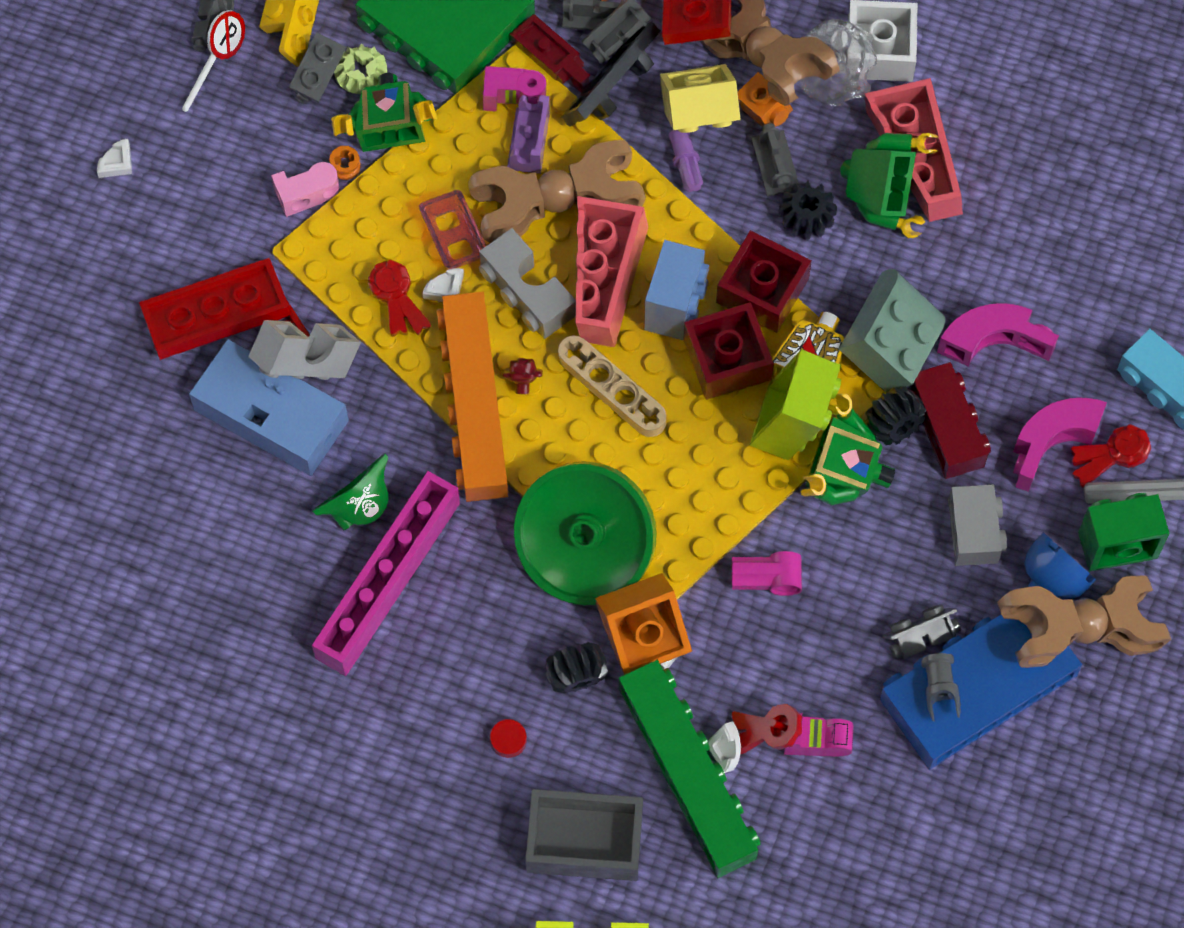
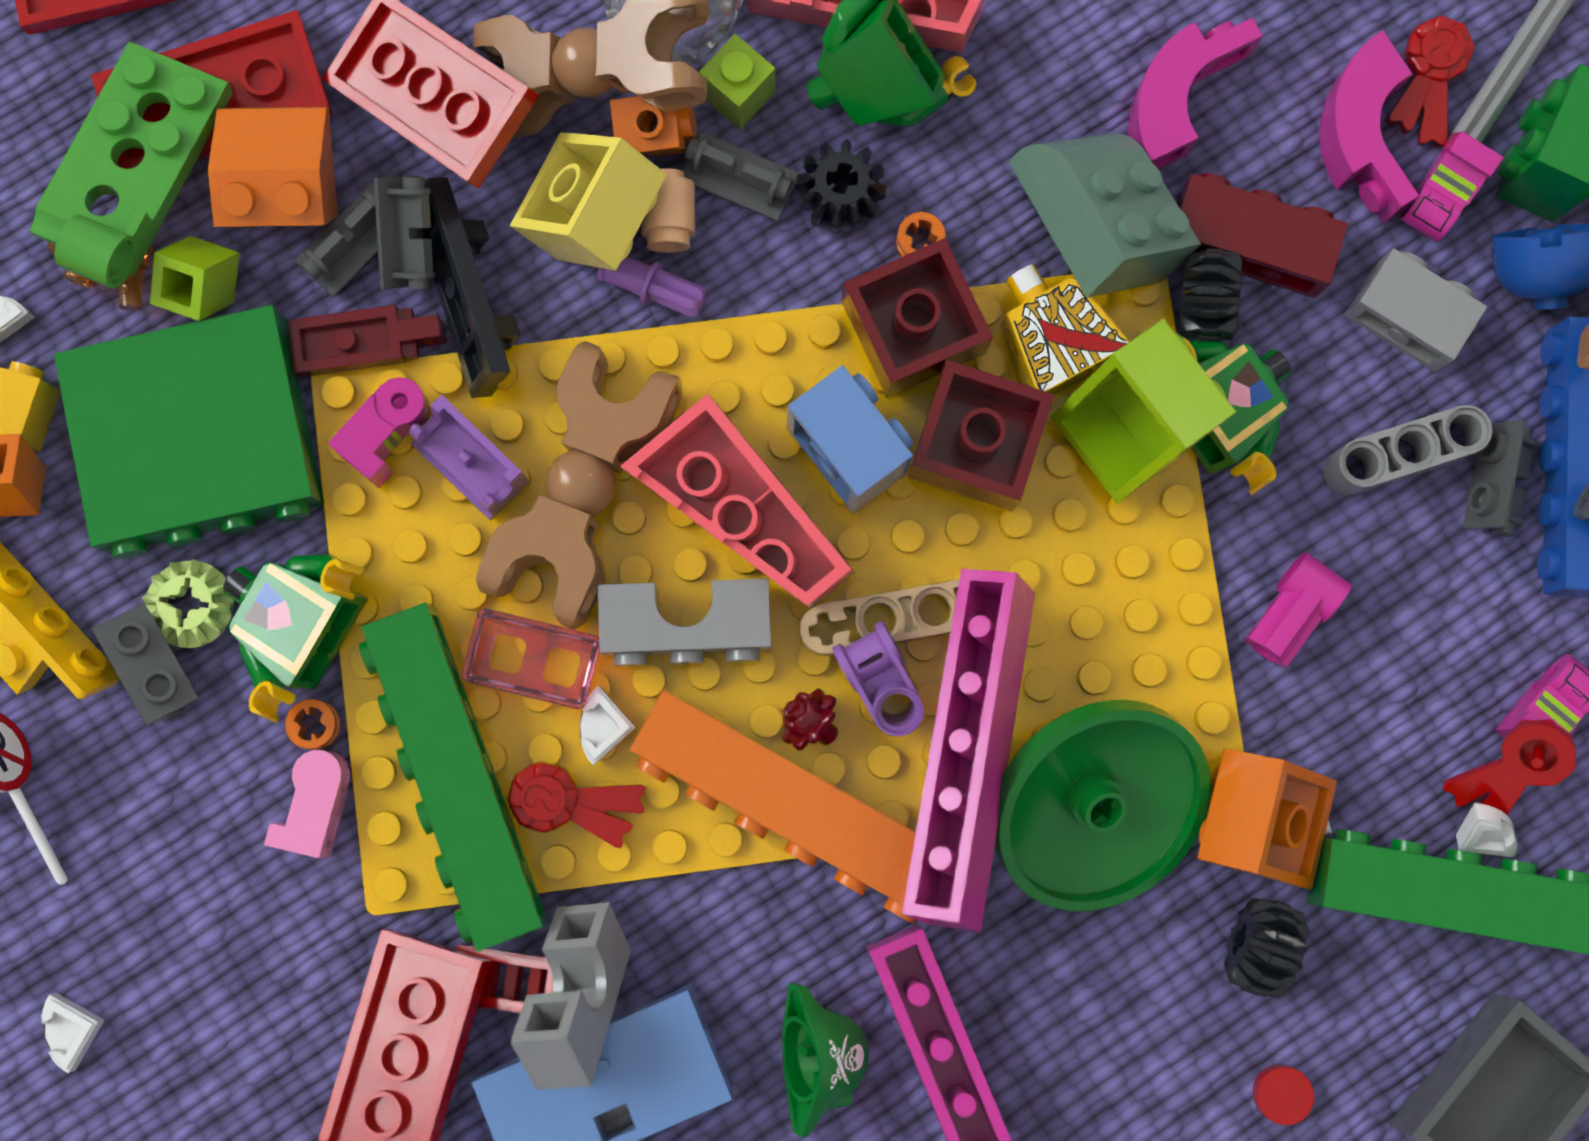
camera: 60 degrees left, 15 degrees up
(368, 234) = (454, 777): none -> green brick
(562, 438) = (969, 750): none -> dark pink brick
(569, 386) = (877, 671): none -> medium lavender piece
(728, 142) = (673, 216): none -> light nougat brick
(820, 126) = (738, 81): none -> lime brick
(820, 259) = (913, 222): none -> orange bush
(890, 555) = (1428, 437): none -> light grey beam
(1056, 496) = (1450, 185): none -> dark pink leg

